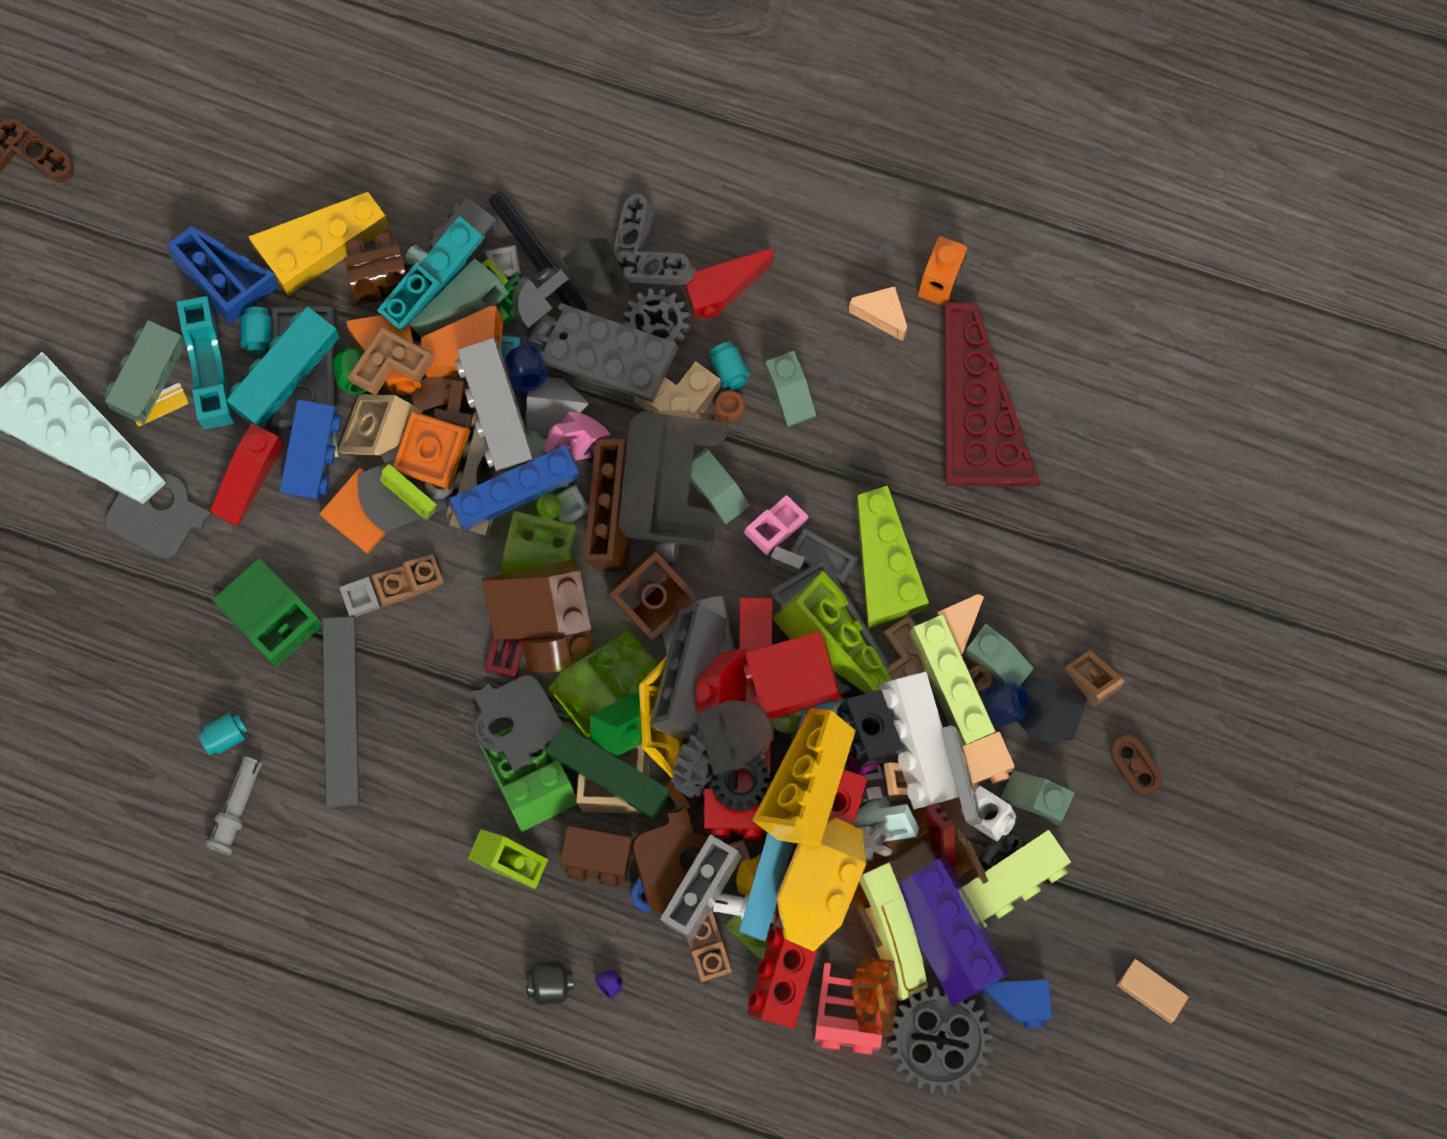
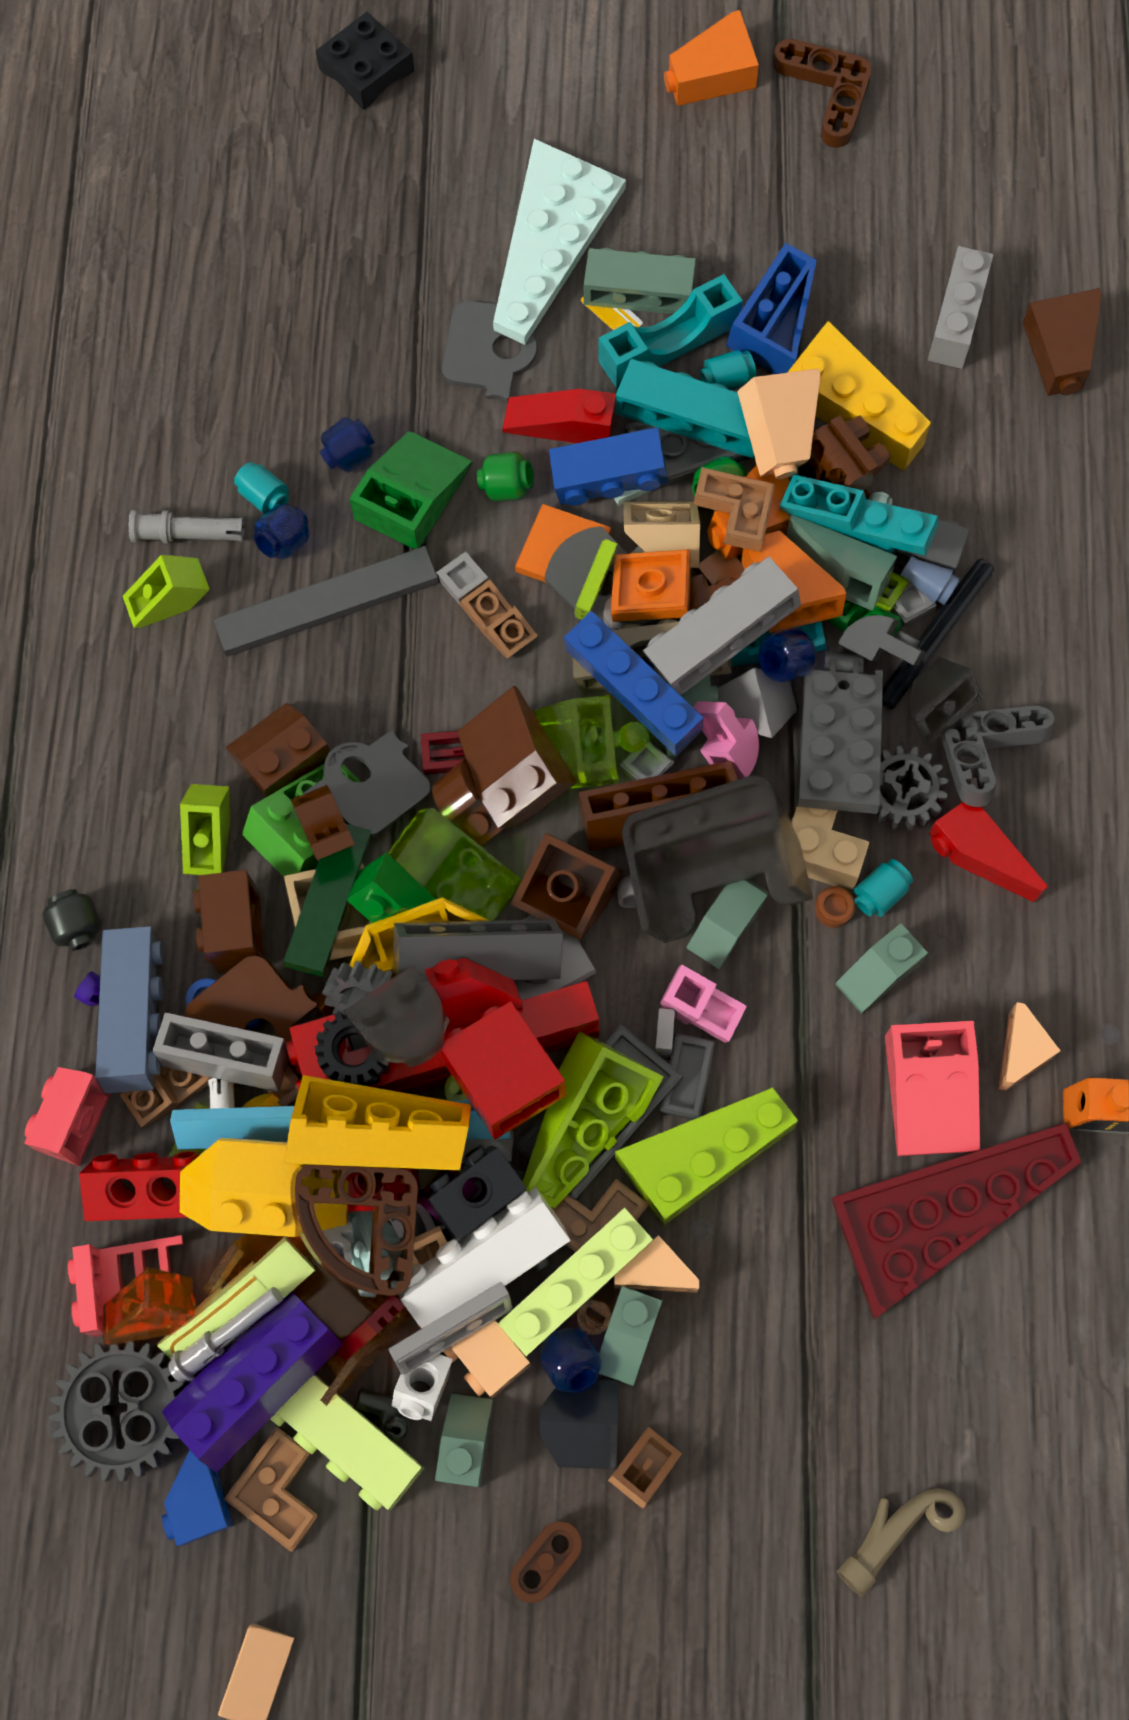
camera: 75 degrees right, 5 degrees down
(208, 653) = (347, 444): none -> clear blue head
(267, 132) = (960, 307): none -> light grey brick
(268, 728) = (281, 531): none -> clear blue head
(285, 534) = (505, 476): none -> green head
(288, 837) = (165, 590): none -> lime slope
(326, 65) = (1063, 338): none -> reddish brown slope
(330, 302) = (781, 419): none -> light nougat slope
(459, 784) = (279, 750): none -> reddish brown slope
(497, 240) = (930, 579): none -> sand blue cone
(548, 757) = (322, 822): none -> reddish brown slope
(638, 953) = (129, 1010): none -> sand blue brick
(706, 1025) = (67, 1115): none -> coral slope
(864, 793) = (383, 1210): none -> reddish brown beam
(891, 384) = (934, 1087): none -> coral slope
(918, 956) = (187, 1363): none -> light grey pin
(1027, 953) = (263, 1491): none -> medium nougat tile
(1186, 530) = (887, 1534): none -> dark tan plant

